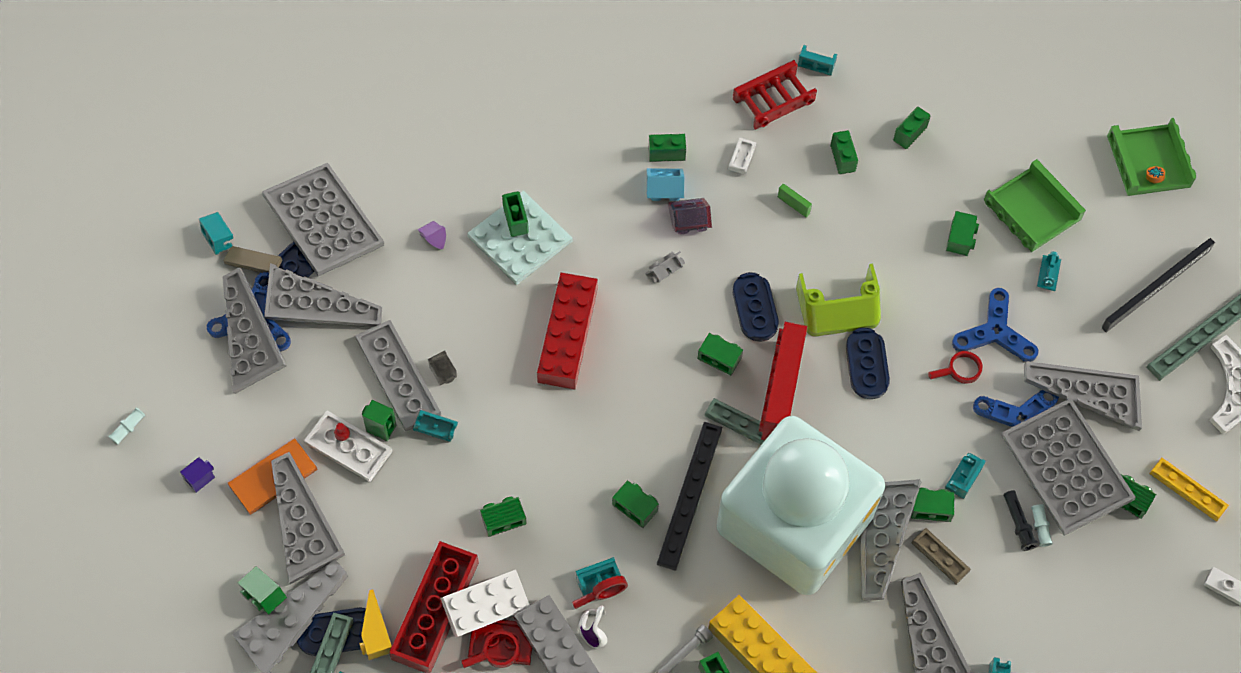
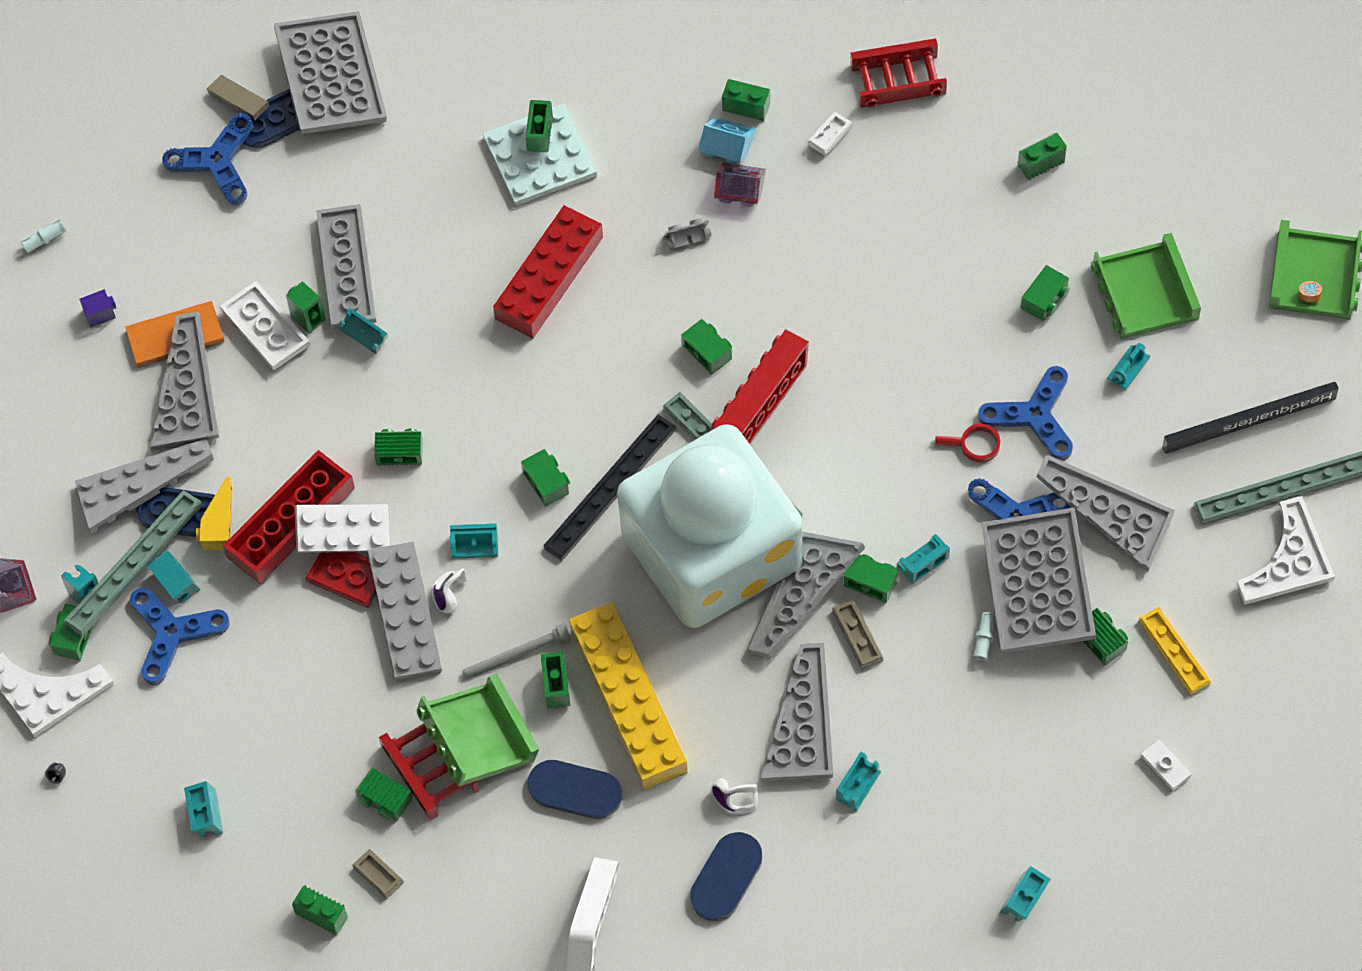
camera: 25 degrees right, 0 degrees up
(216, 232) = (209, 55): teal hinge -> none
(249, 338) = (202, 181): light grey wing -> none
(261, 590) = (118, 445): brick -> none
(307, 300) = (279, 157): light grey wing -> none
(341, 432) = (262, 308): red piece -> none
(434, 234) = (444, 124): medium lavender tile -> none
(437, 364) = (396, 272): clear smoke brick -> none
(484, 656) = (321, 582): red piece -> none
(600, 592) = (471, 560): red piece -> none
(755, 307) = (770, 305): dark blue tile -> none
(794, 200) = (867, 200): bright green tile -> none
(816, 61) = (966, 47): teal hinge -> none
(840, 314) = (863, 342): lime windscreen -> none
(844, 152) = (949, 162): green brick -> none
(867, 363) = (870, 406): dark blue tile -> none
(1022, 528) = (961, 634): black pin -> none

